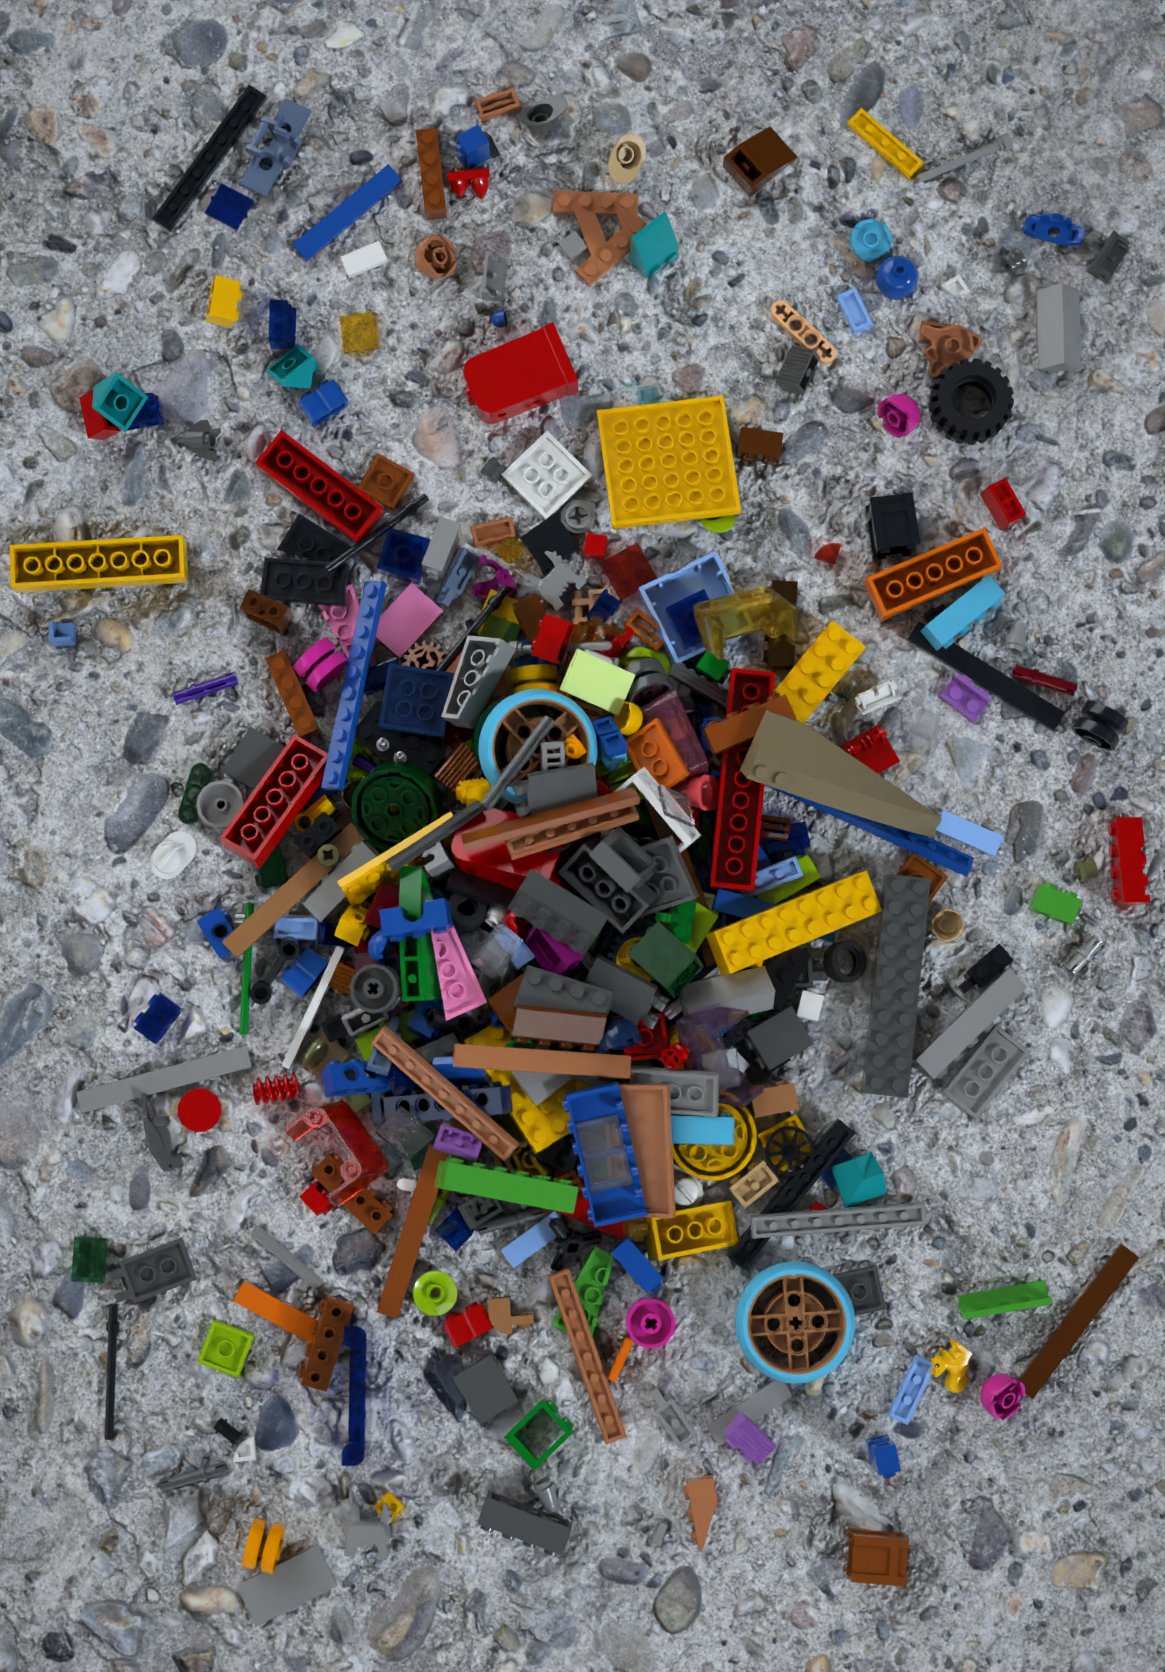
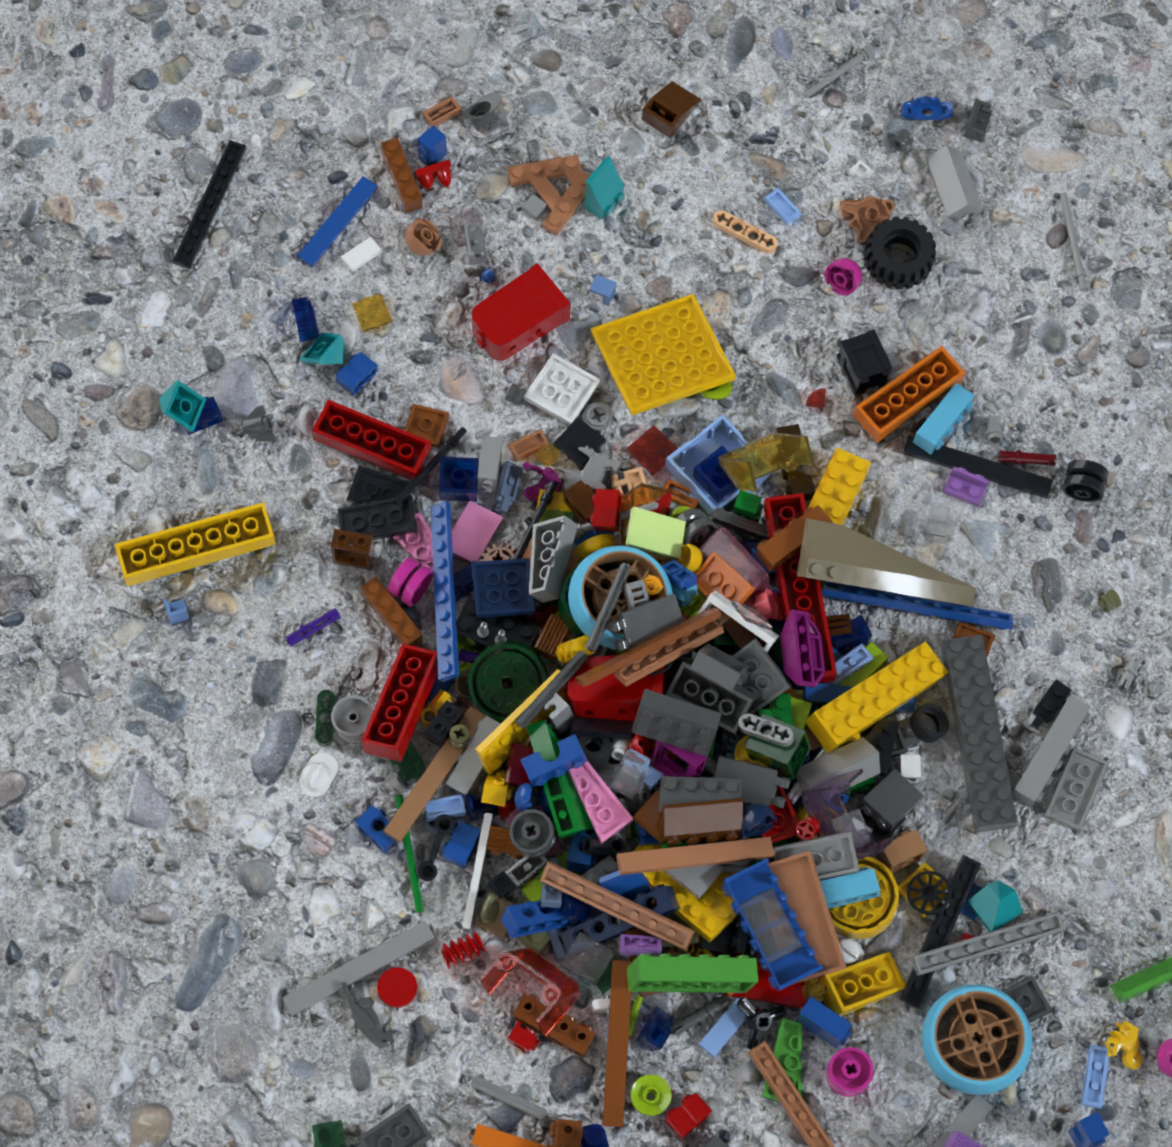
camera: 15 degrees left, 15 degrees down
(96, 425) = (166, 430): red brick -> none
(158, 1017) = (340, 915): clear blue brick -> none
(223, 301) = (251, 311): yellow brick -> none
(229, 207) = (235, 238): clear blue piece -> none
(253, 757) = (370, 674): dark grey brick -> none
(281, 151) = (269, 186): sand blue piece -> none
(478, 1209) = (670, 1007): dark grey bracket -> none
(501, 1318) = (715, 1099): medium nougat brick -> none
(595, 546) = (619, 436): red piece -> none
(605, 607) = (642, 476): clear blue piece -> none
(620, 1359) = (831, 1112): orange tile -> none
(624, 366) = (604, 287): none -> medium blue panel
(626, 158) = (561, 128): tan piece -> none
(646, 928) = (750, 730): none -> light grey beam
(647, 394) = (629, 307): clear light blue tile -> none
(721, 859) = (802, 649): none -> magenta wedge
(753, 1183) = (904, 931): tan bracket -> none
(759, 445) = (734, 326): reddish brown brick -> none
(797, 369) = (749, 260): dark grey brick -> none
(870, 240) = (779, 150): medium azure tile -> none
(870, 701) = (885, 508): white hinge -> none
(872, 749) = (904, 542): red hinge -> none
(885, 143) = (769, 74): yellow tile -> none
(897, 277) = (810, 172): blue cylinder -> none
(947, 925) = (1007, 673): tan hair -> none
(969, 833) = (1002, 596): light blue tile -> none
(1003, 504) = (950, 327): red hinge -> none
(1055, 904) = (1092, 635): bright green brick -> none
(1128, 862) = (1143, 587): red wedge -> none

